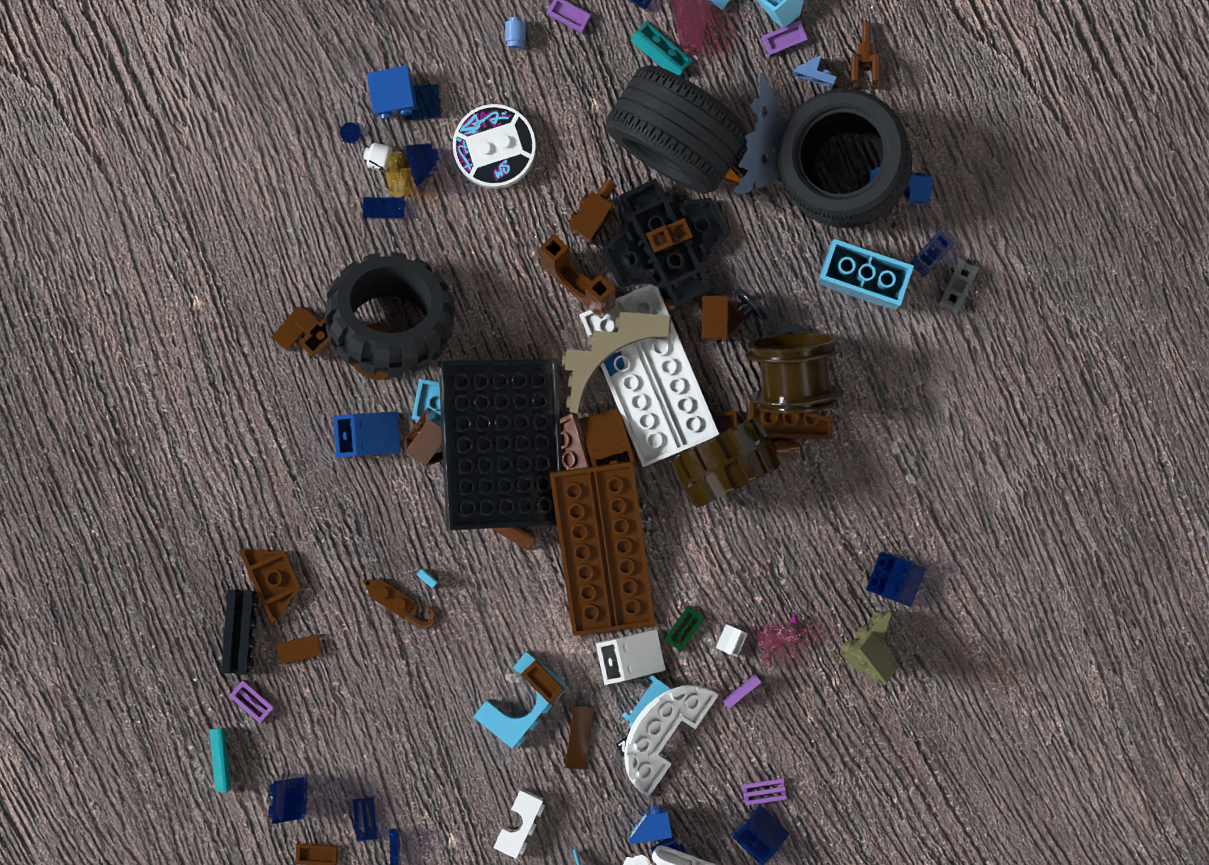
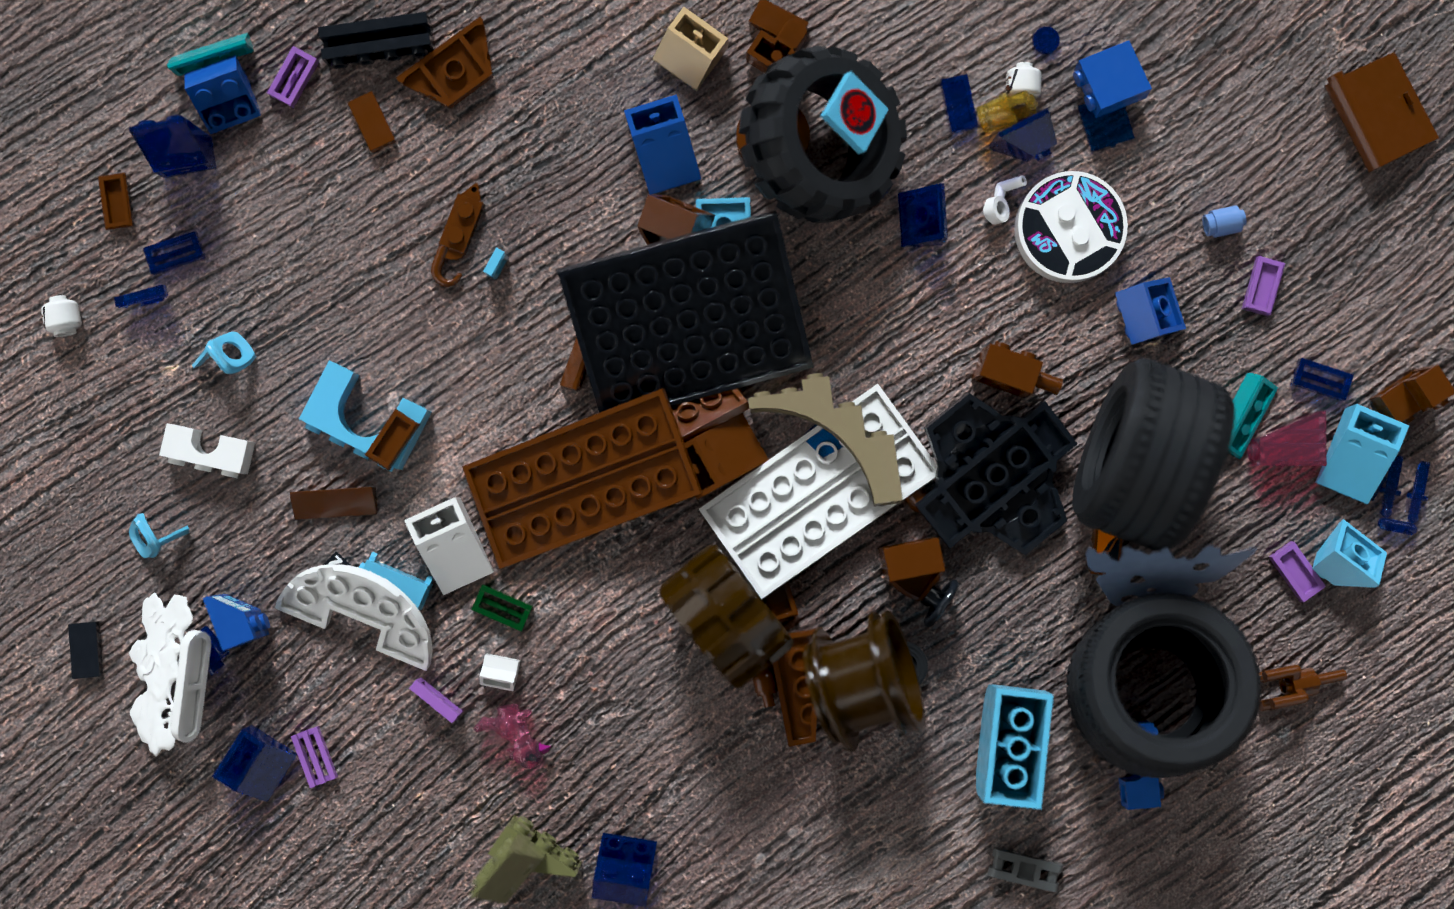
camera: 75 degrees right, 0 degrees up
(254, 756) = (222, 94): none -> blue slope
(299, 398) = (690, 48): none -> tan slope
(381, 288) = (854, 112): none -> tile
(445, 800) = (228, 365): none -> medium azure piece
(462, 253) = (923, 216): none -> clear blue slope
(468, 197) = (996, 208): none -> white plate
(569, 102) = (1150, 310): none -> blue slope
(595, 294) = (909, 397): reddish brown arch -> none
(669, 235) = (1006, 477): reddish brown slope -> none
(809, 72) = (1260, 614): medium blue slope -> none
(925, 264) = (1044, 818): clear blue slope -> none

